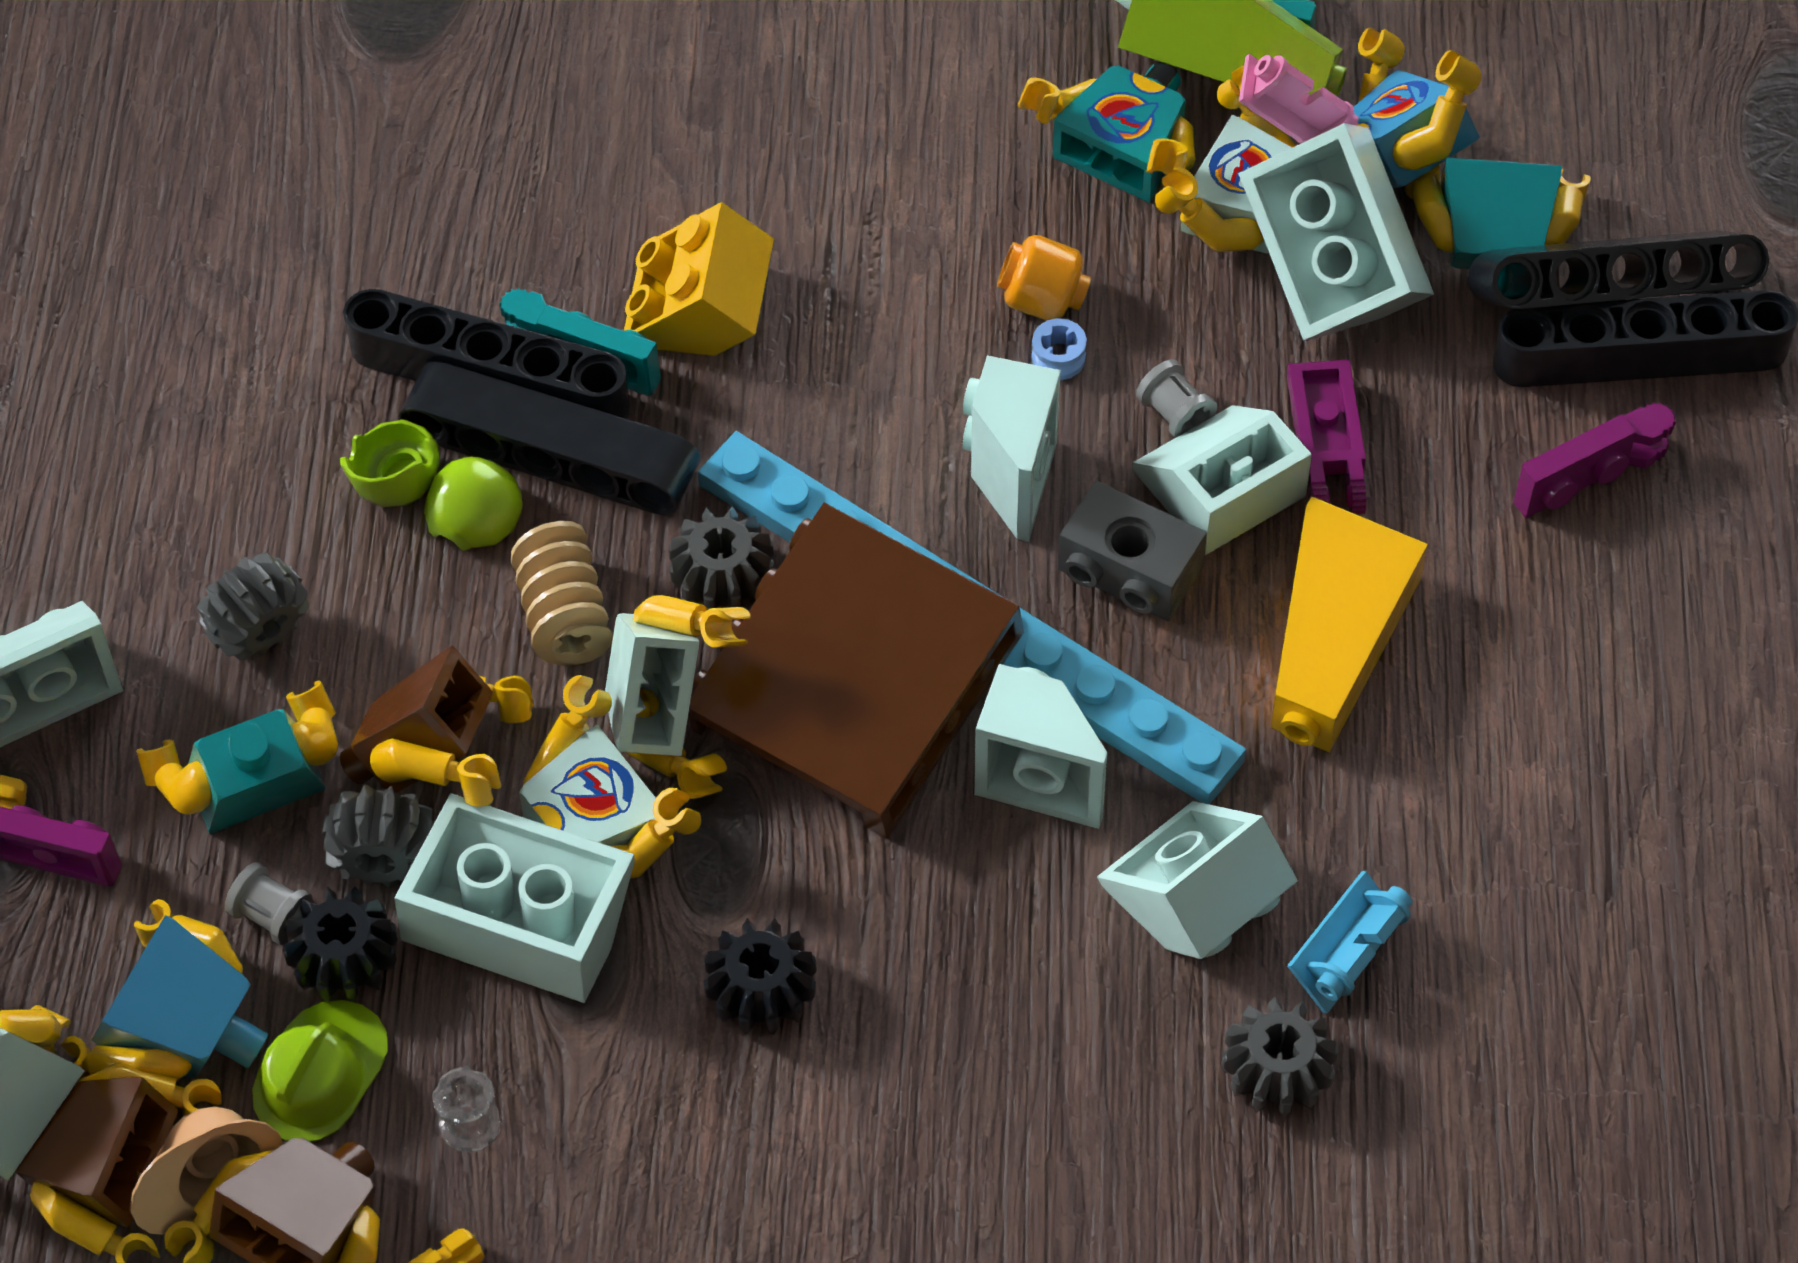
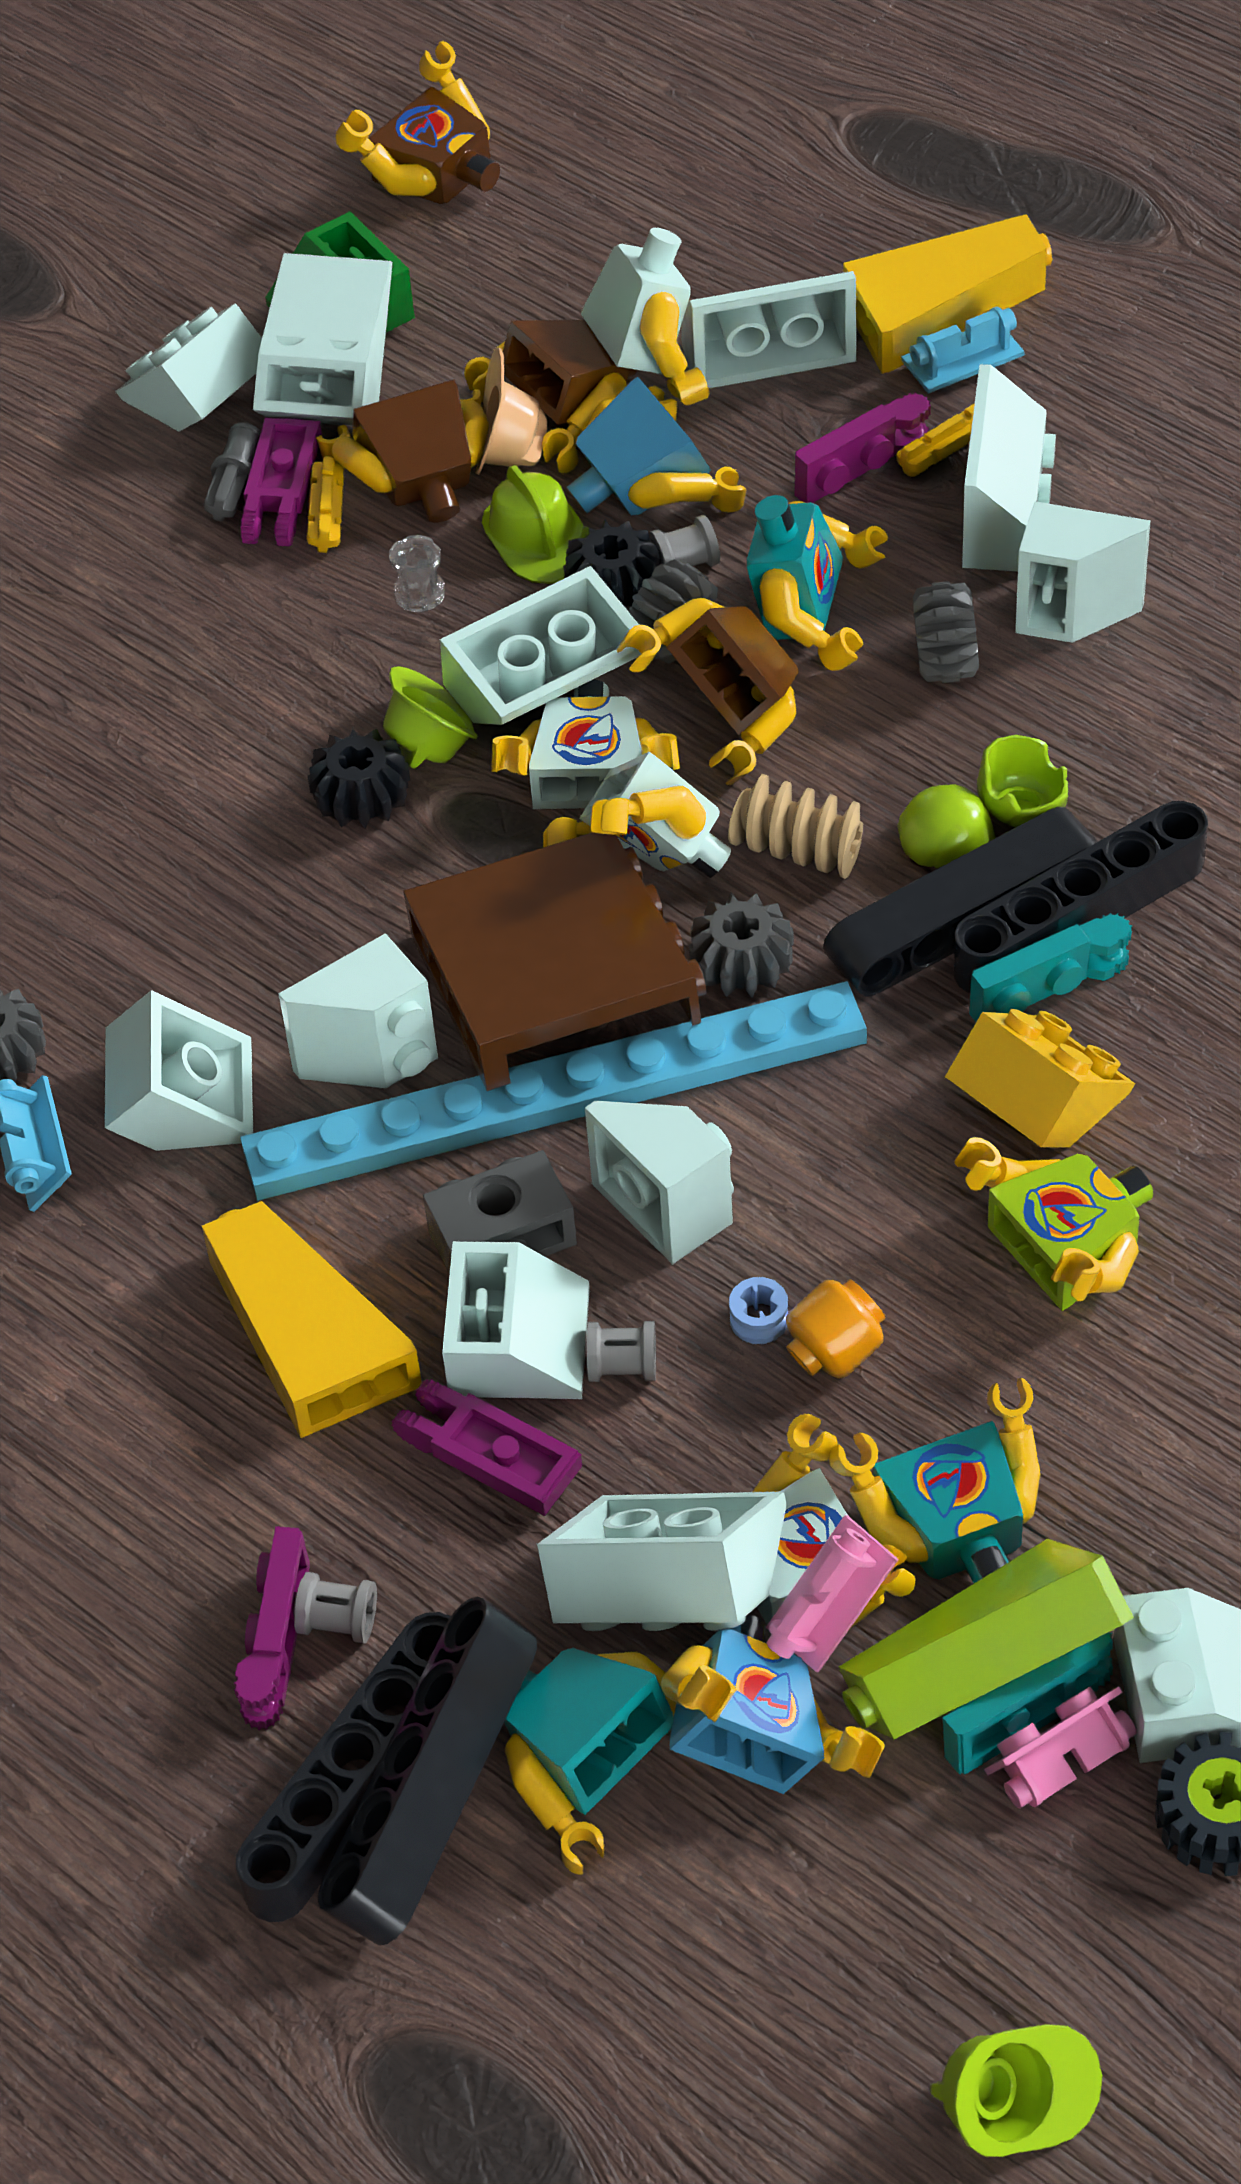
camera: 130 degrees right, 5 degrees down
(114, 541) = (1079, 571): none -> light aqua slope
(651, 963) = (424, 718): none -> lime piece
(831, 185) = (1061, 1218): none -> torso
(1537, 424) = (335, 1607): none -> light grey bush

